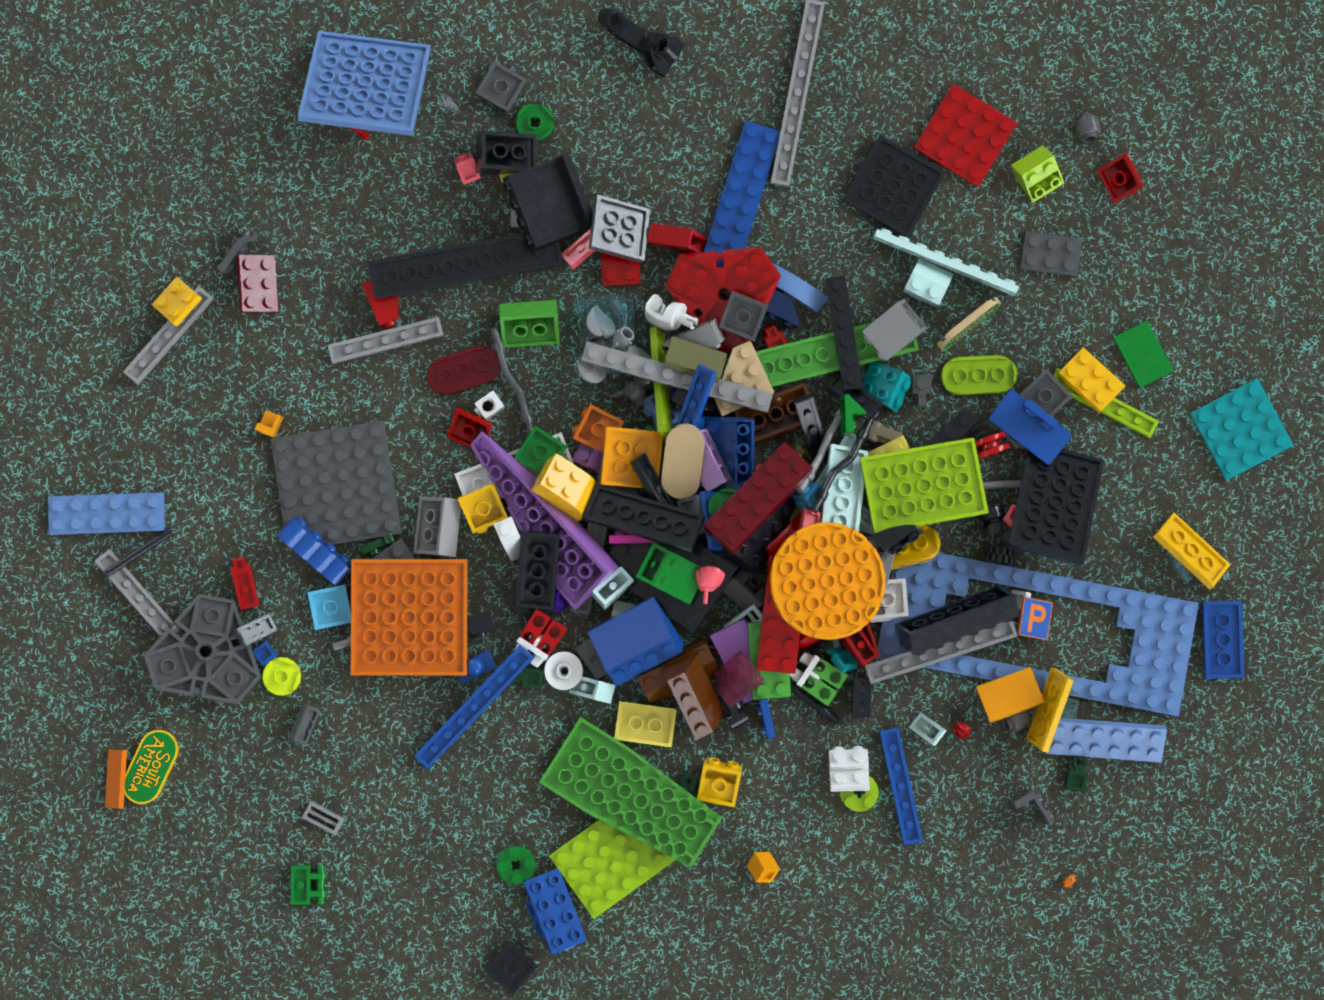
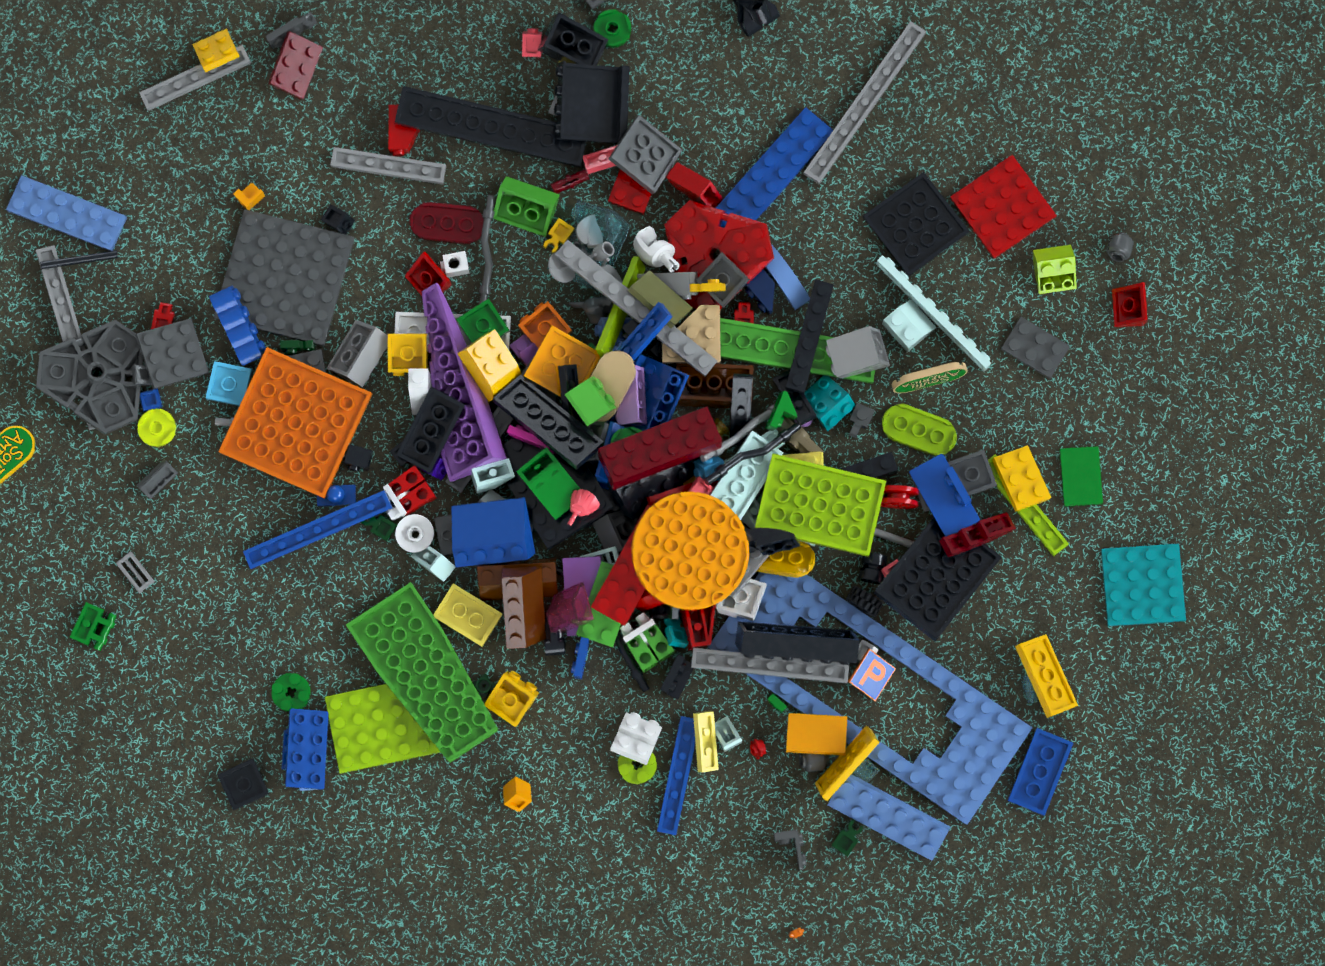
camera: 30 degrees right, 5 degrees down
(265, 602) = (172, 353): none -> dark grey plate
(361, 411) = (338, 219): none -> black bracket
(560, 283) = (581, 175): none -> dark red pin
(572, 335) = (560, 233): none -> yellow plate
(675, 482) = (591, 400): none -> bright green slope
(737, 326) = (712, 286): none -> yellow plate
(912, 745) = (705, 741): none -> light yellow plate
(961, 682) = (777, 704): none -> green tile
(1074, 449) = (977, 534): none -> dark red slope

